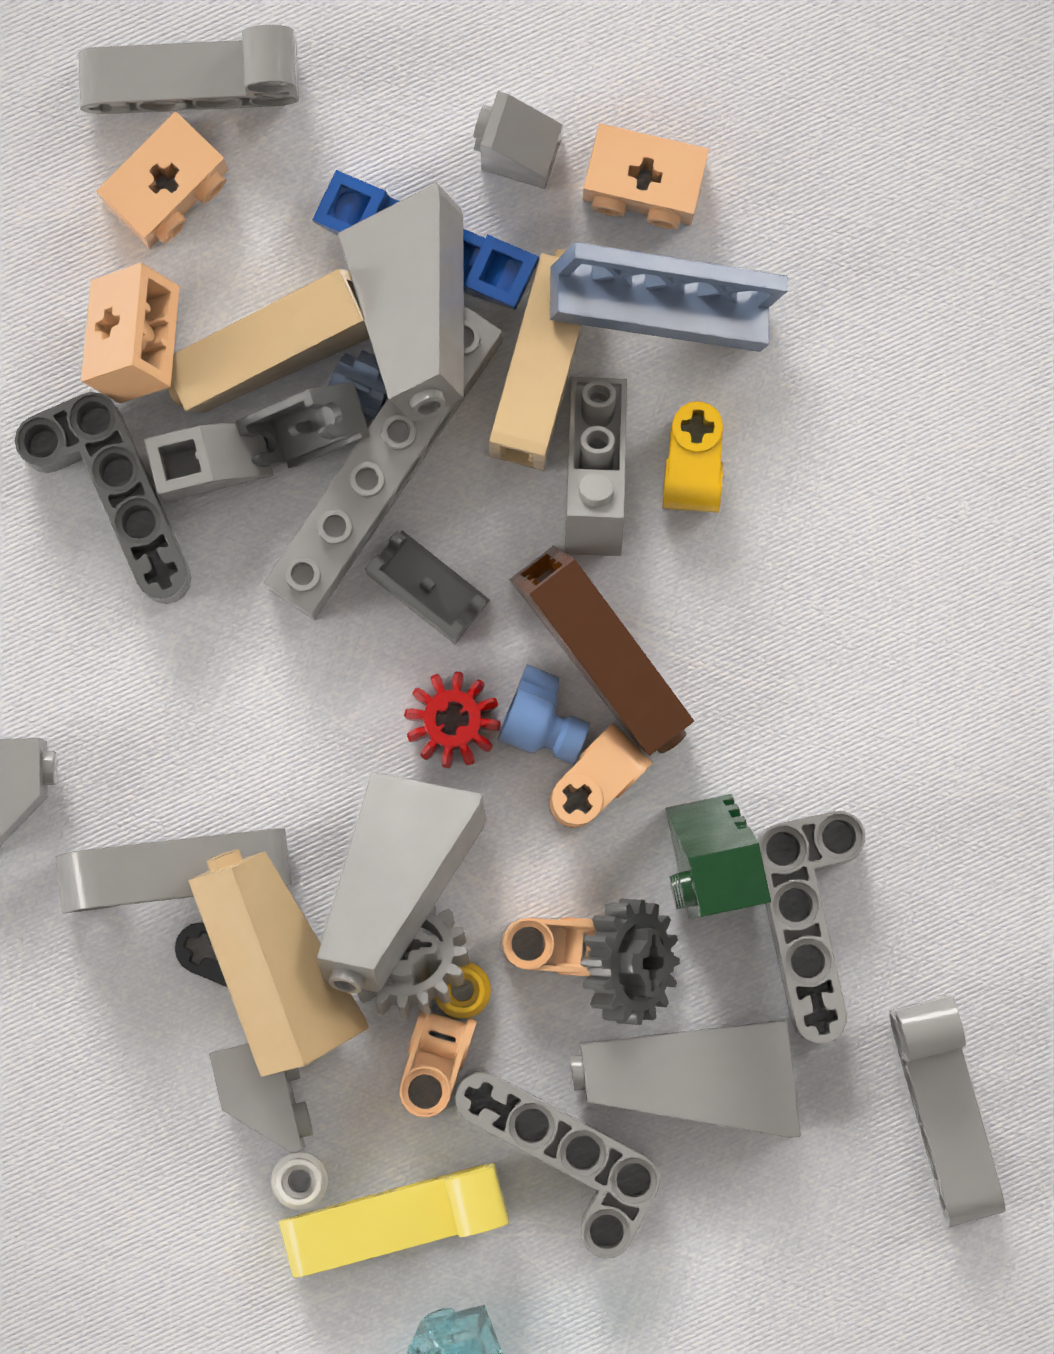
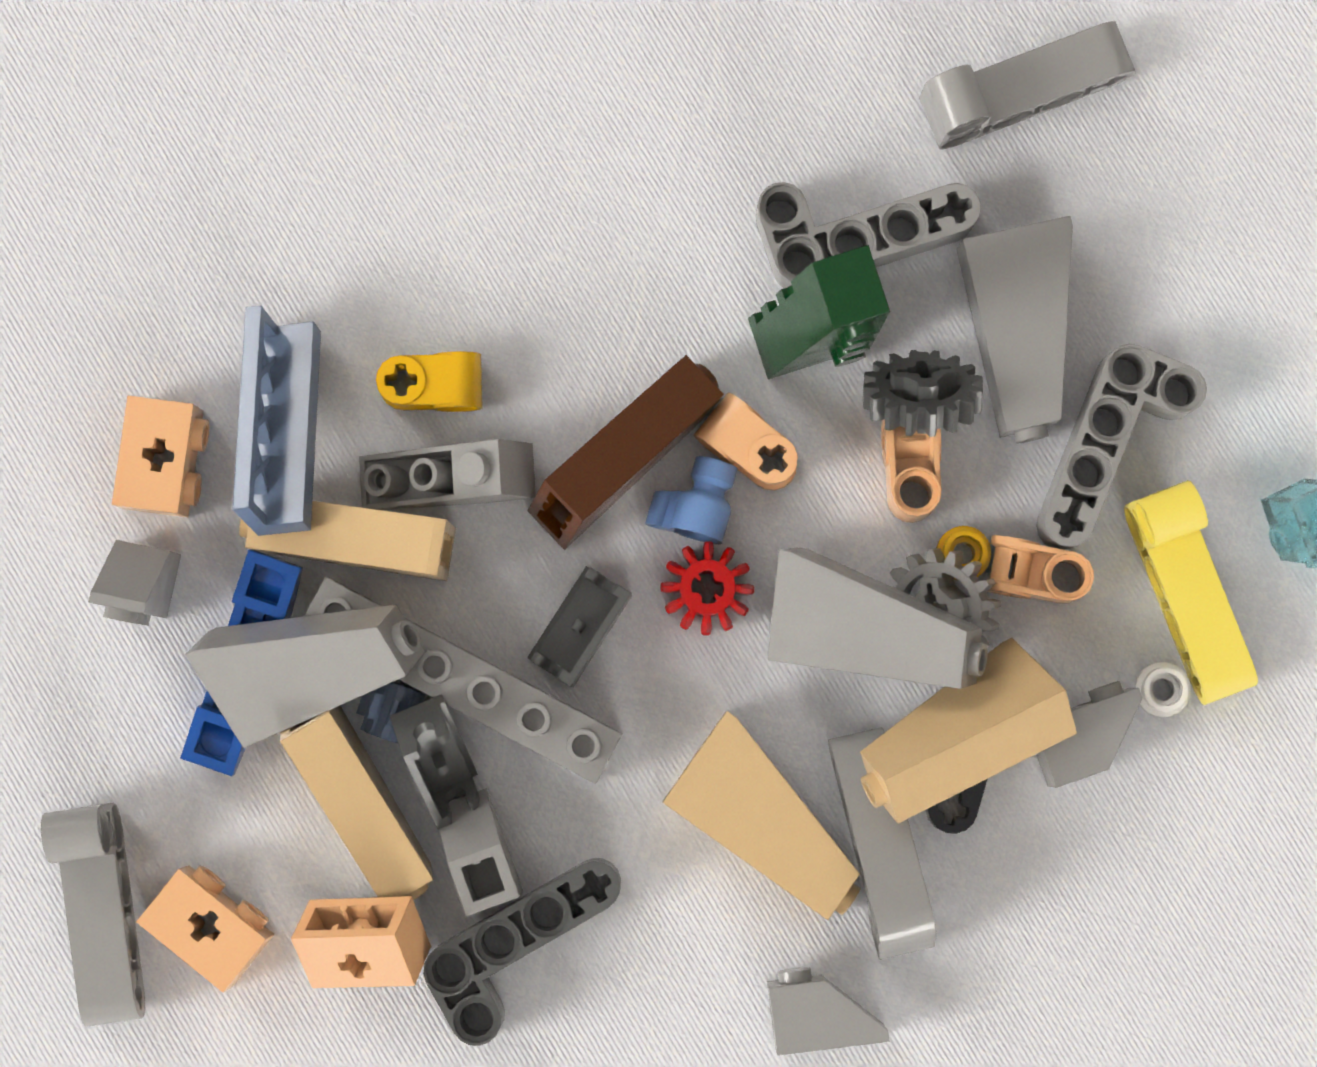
camera: 90 degrees left, 0 degrees up
(214, 746) = (754, 813): none -> tan slope

